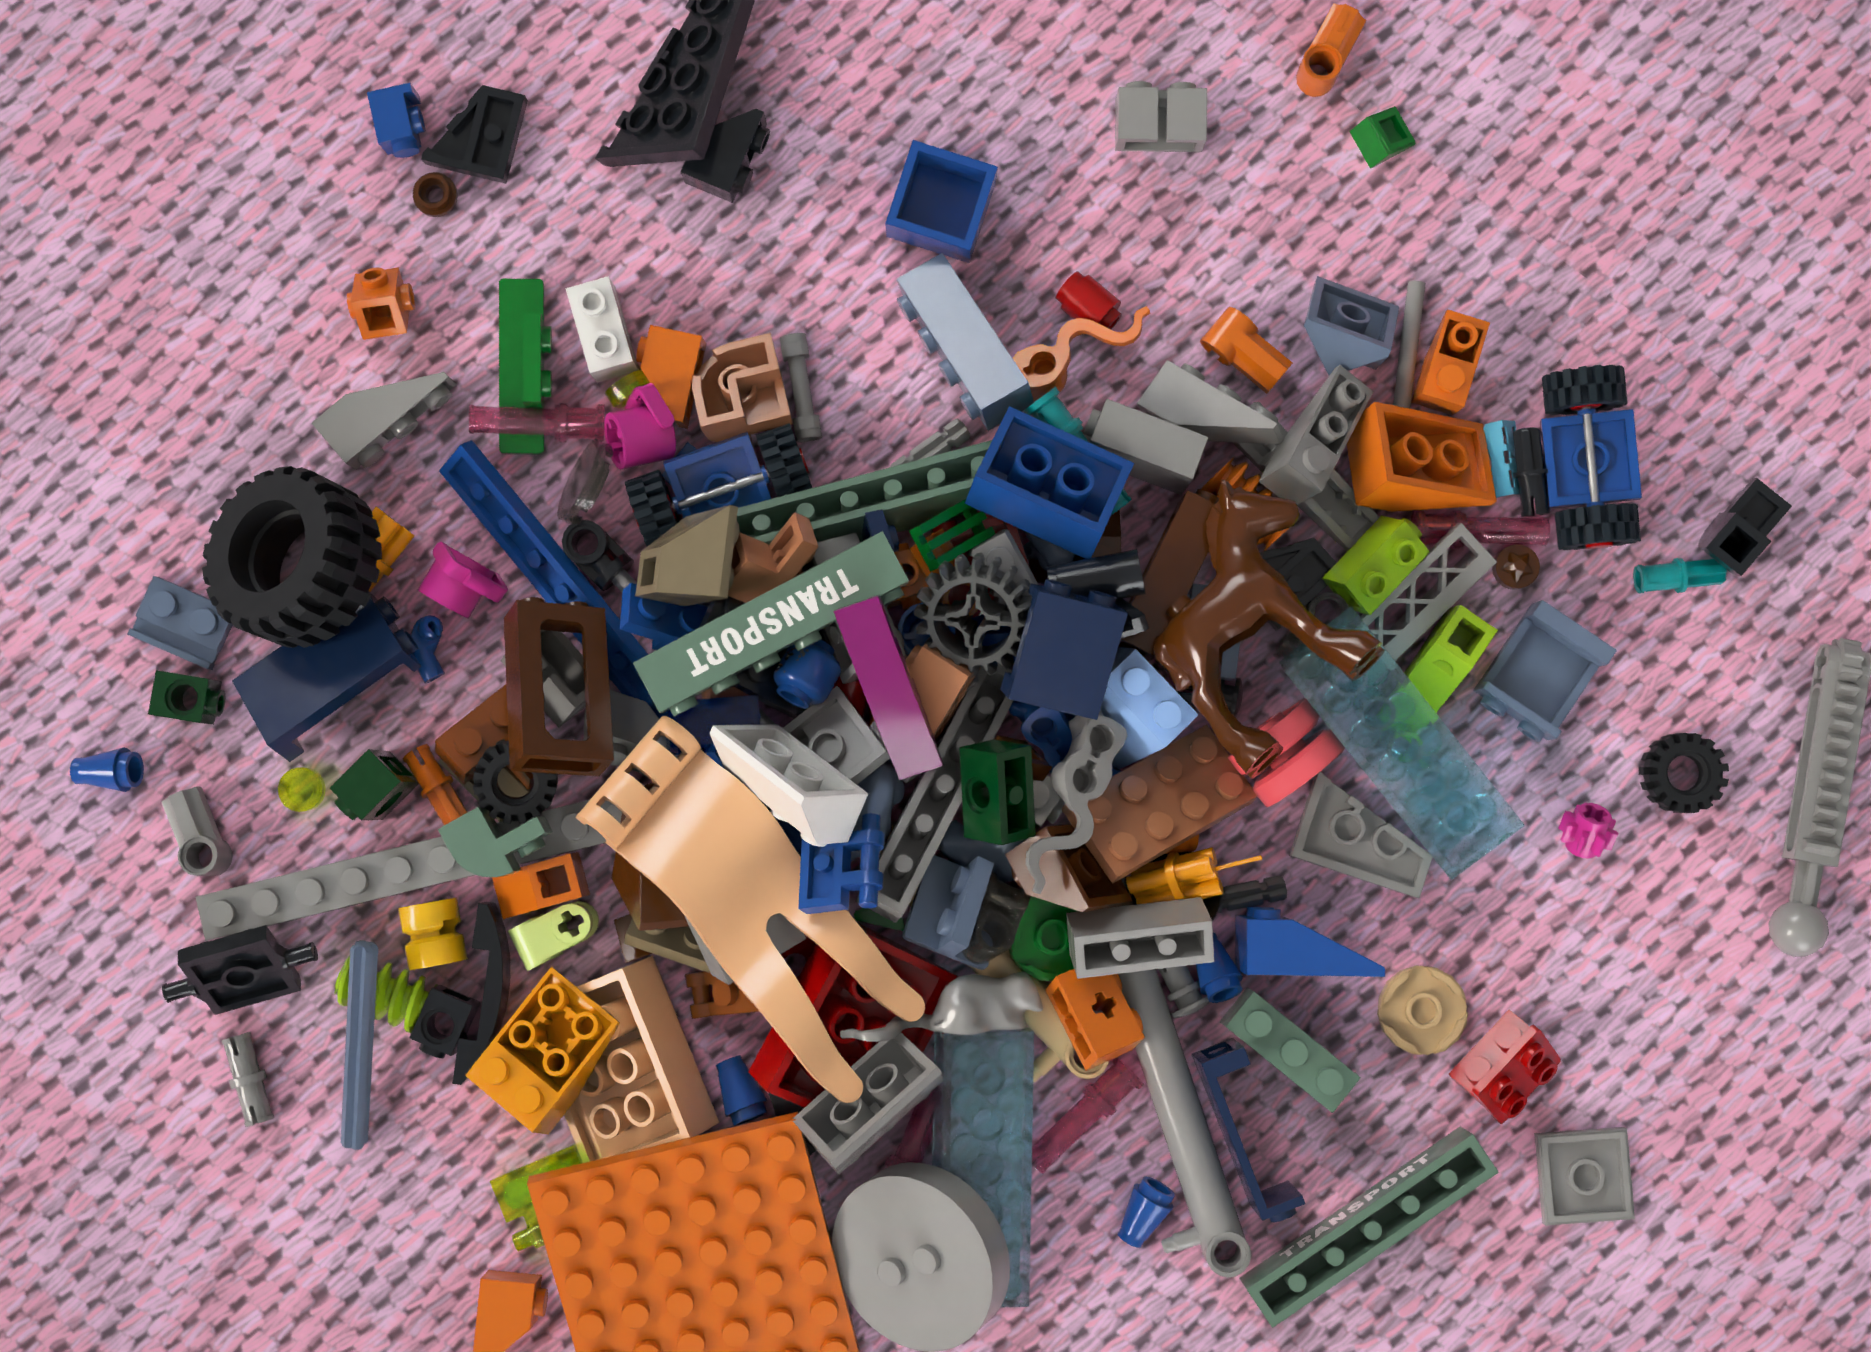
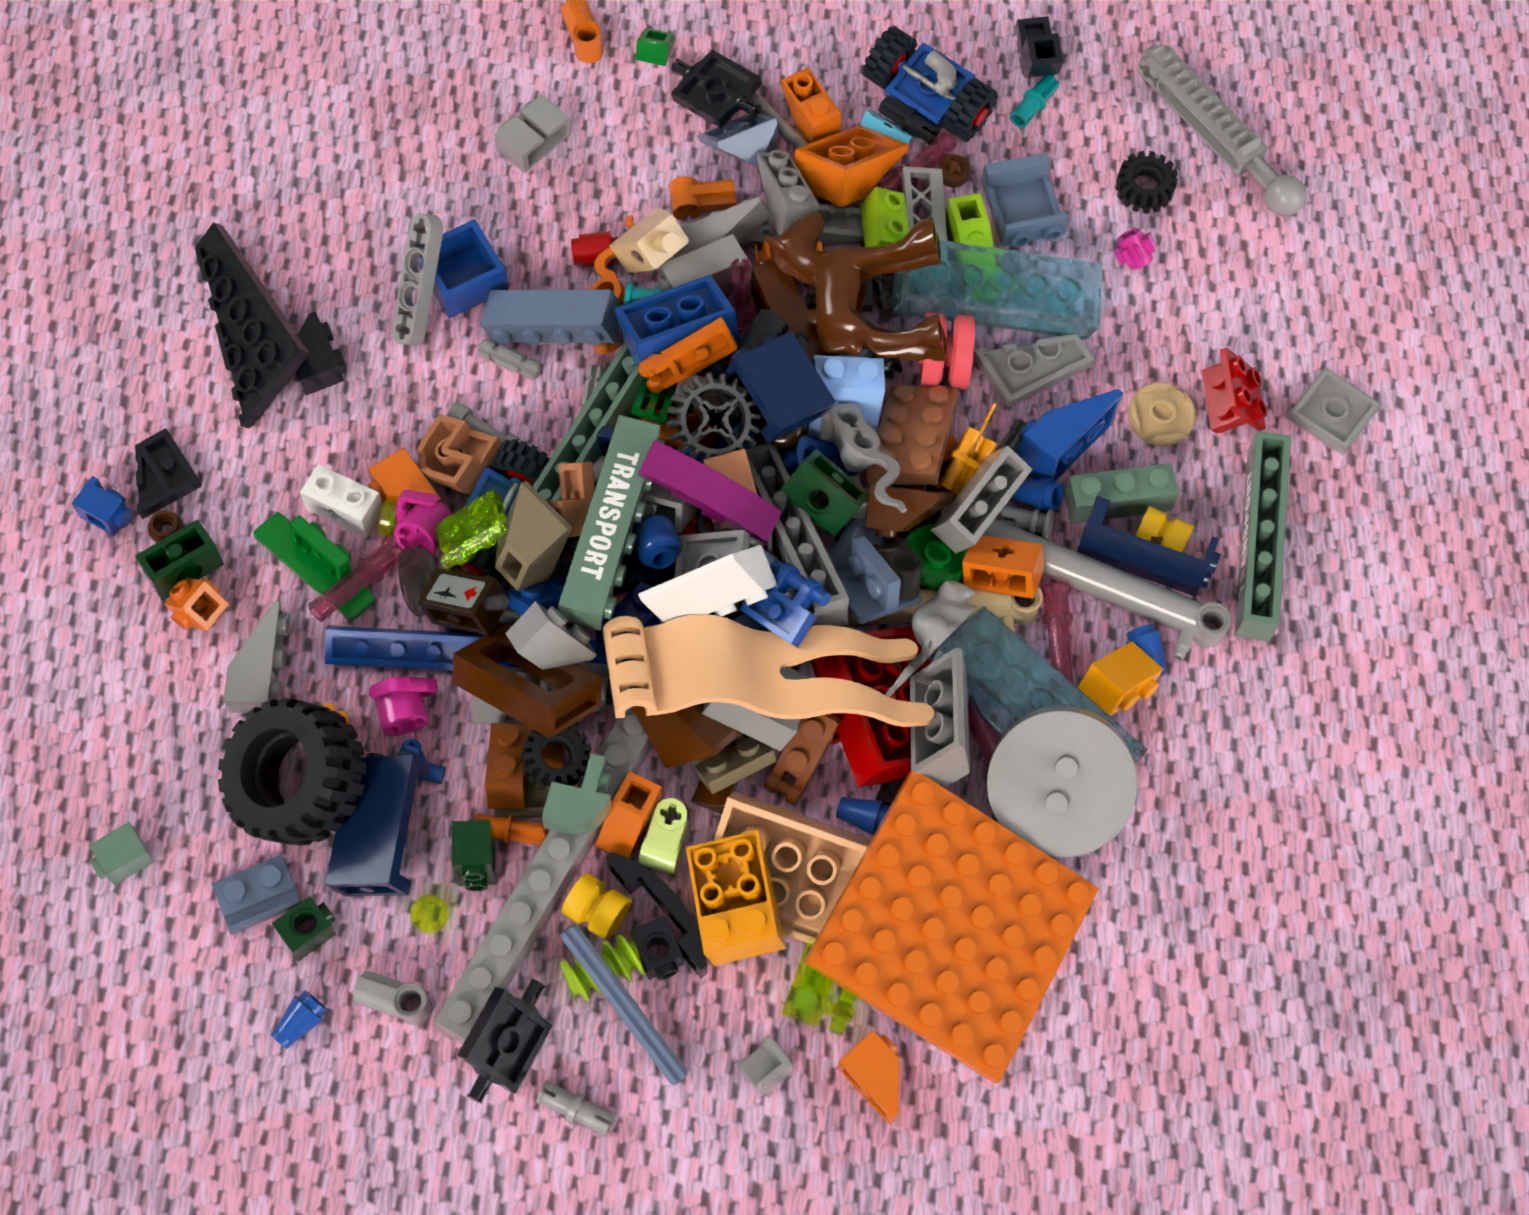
camera: 50 degrees left, 20 degrees down
(104, 472) = (119, 854): none -> sand green brick
(408, 243) = (178, 557): none -> dark green brick
(426, 1213) = (766, 1066): none -> light grey panel
(585, 554) = (464, 601): none -> dark brown brick
(603, 679) = (548, 640): none -> light grey slope
(663, 484) = (471, 529): none -> clear neon green plate
(896, 337) = (510, 359): none -> light grey axle
(917, 148) = (421, 280): none -> light grey beam
(1018, 530) = (688, 356): none -> orange hinge
(1081, 1219) = (1121, 679): none -> light orange brick
(1128, 364) = (654, 238): none -> tan torso
(1145, 511) = (740, 293): none -> clear pink pin
(1280, 1116) = (1159, 530): none -> yellow wheel
(1384, 248) = (716, 88): none -> black plate
(1613, 468) = (945, 73): none -> light grey arm

